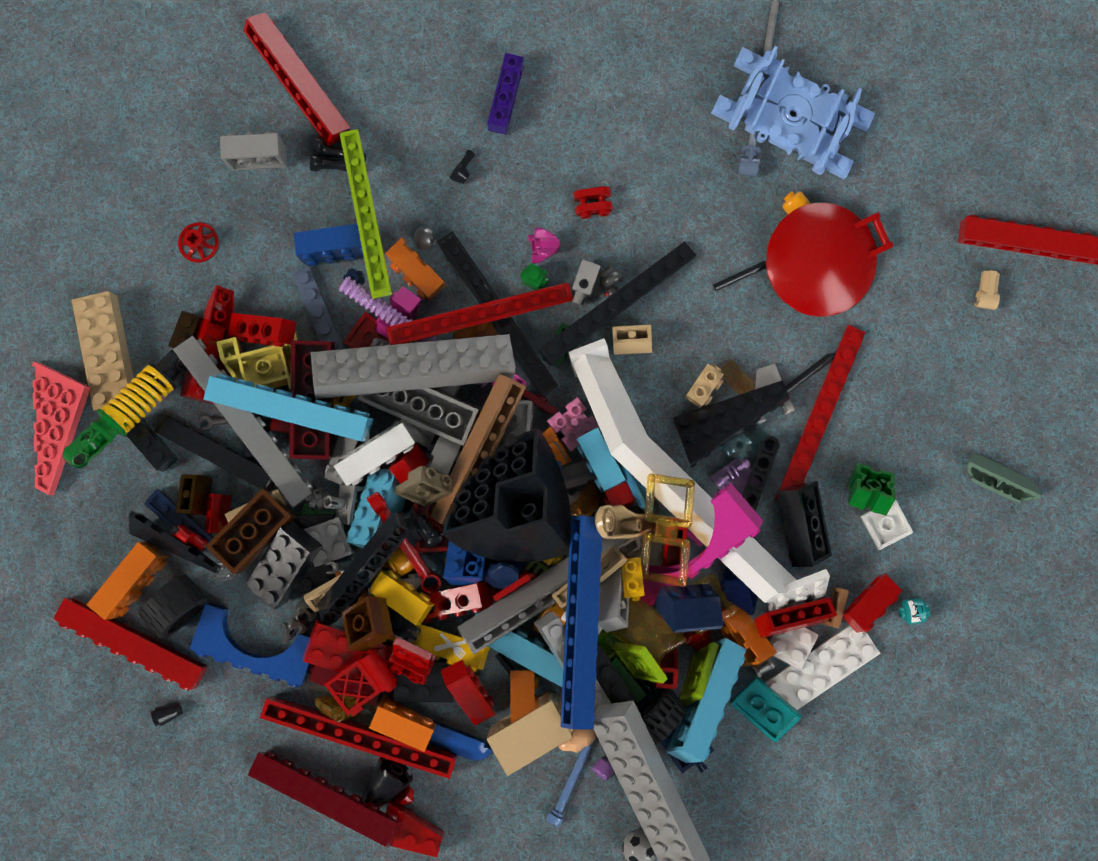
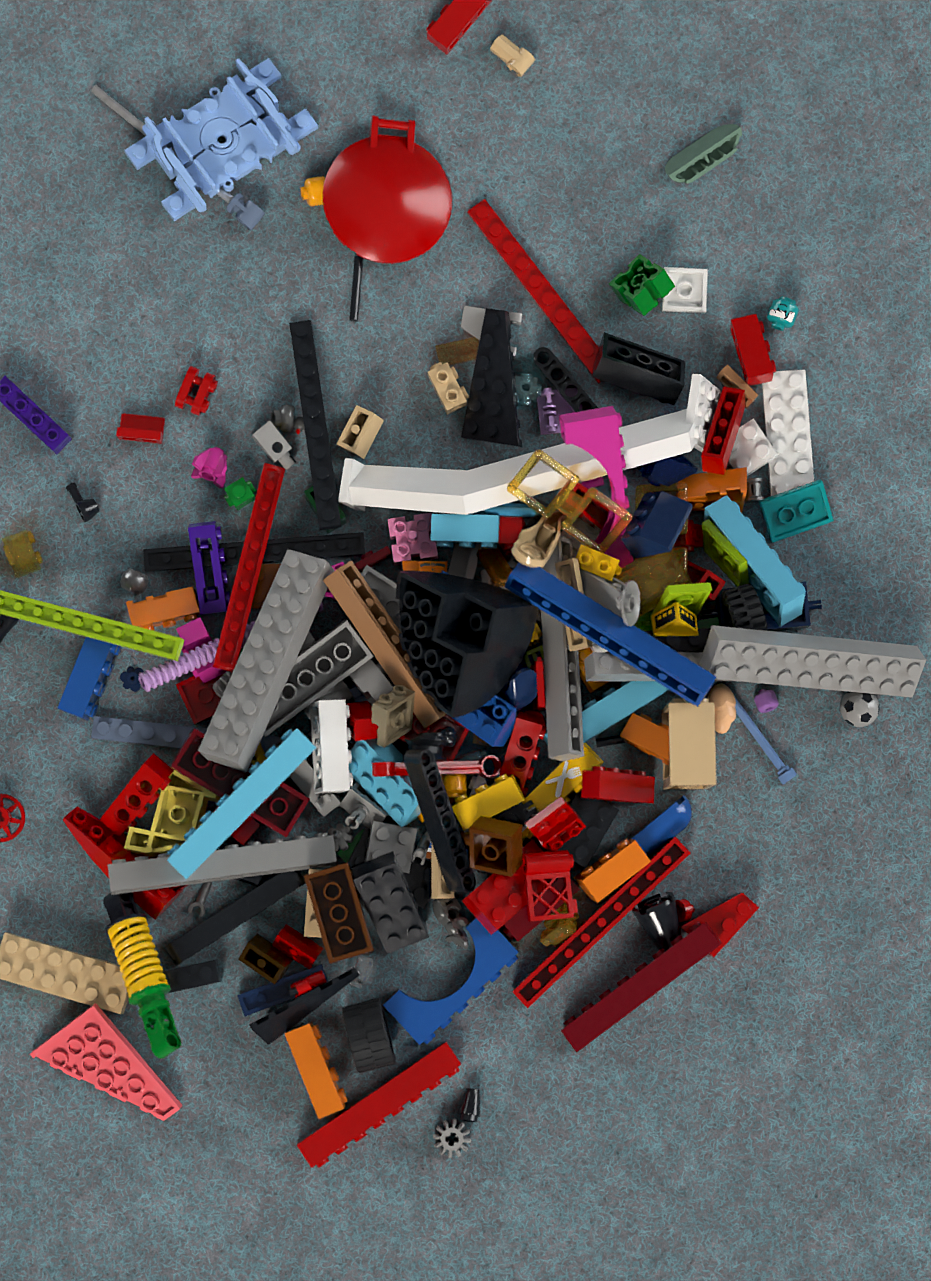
camera: 65 degrees left, 0 degrees up
(131, 705) = (457, 1144): none -> light grey gear
(185, 328) = (91, 877): dark brown brick -> none
(400, 145) = (21, 553): none -> clear yellow cylinder
(483, 263) = (204, 531): none -> dark purple brick
(542, 179) = (141, 428): none -> red panel
(612, 624) = (629, 603): none -> light grey dish
(621, 666) = (674, 621): none -> yellow slope
(807, 373) = (492, 276): black bar -> none

